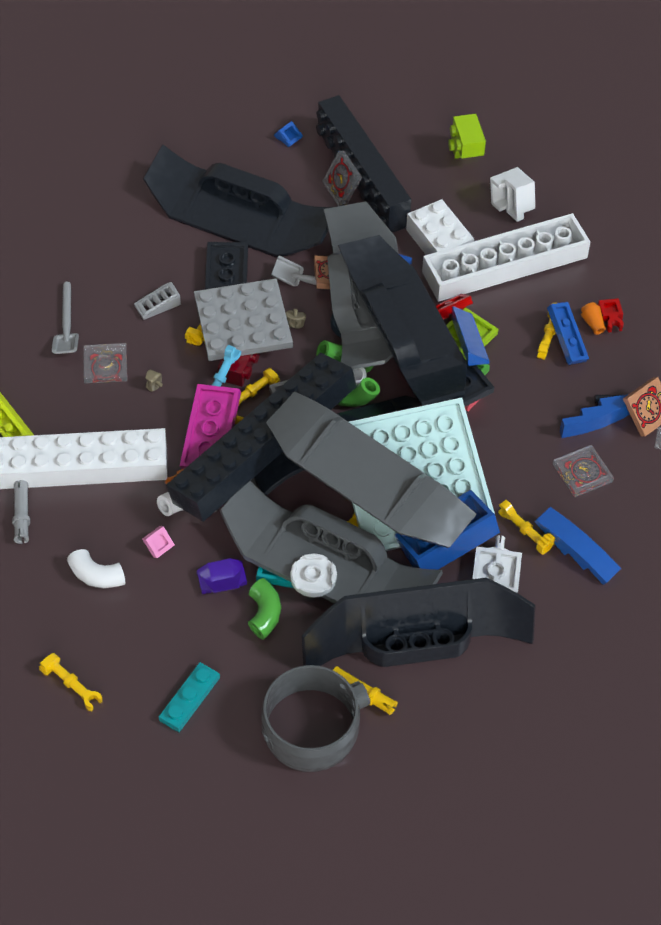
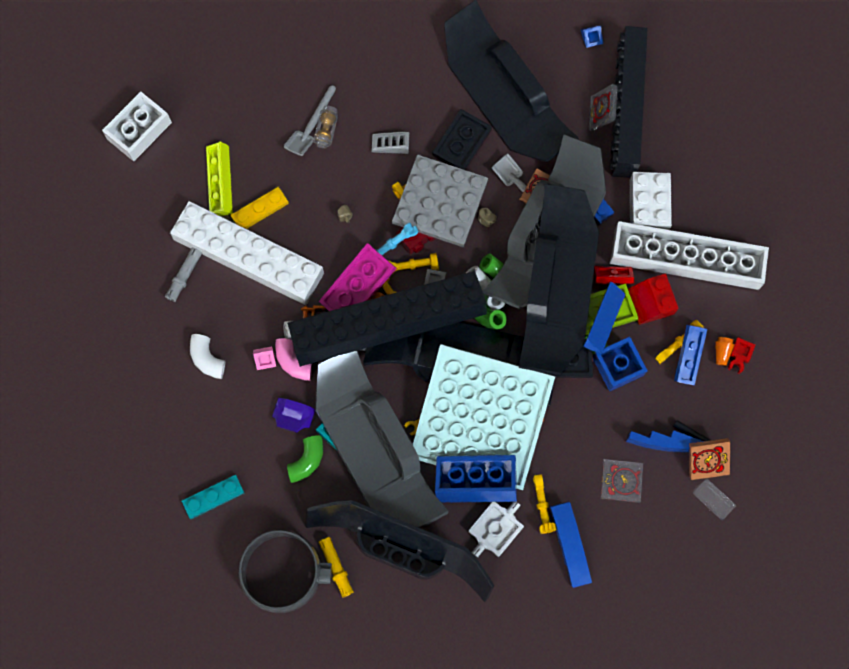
camera: 30 degrees right, 20 degrees up
(51, 663) = (139, 435): yellow piece -> none
(65, 414) = (260, 208): none -> yellow plate
(81, 308) = (328, 118): none -> clear piece
(105, 363) = (319, 176): clear tile -> none
(187, 531) = (288, 361): none -> bright pink cylinder
(313, 575) = (354, 456): white tile -> none
(368, 472) = (436, 402): dark grey piece -> none
(466, 137) = (731, 123): lime brick -> none
(502, 306) = (653, 299): none -> red slope
(511, 371) = (620, 364): none -> blue brick
(513, 192) = (736, 197): white plate -> none

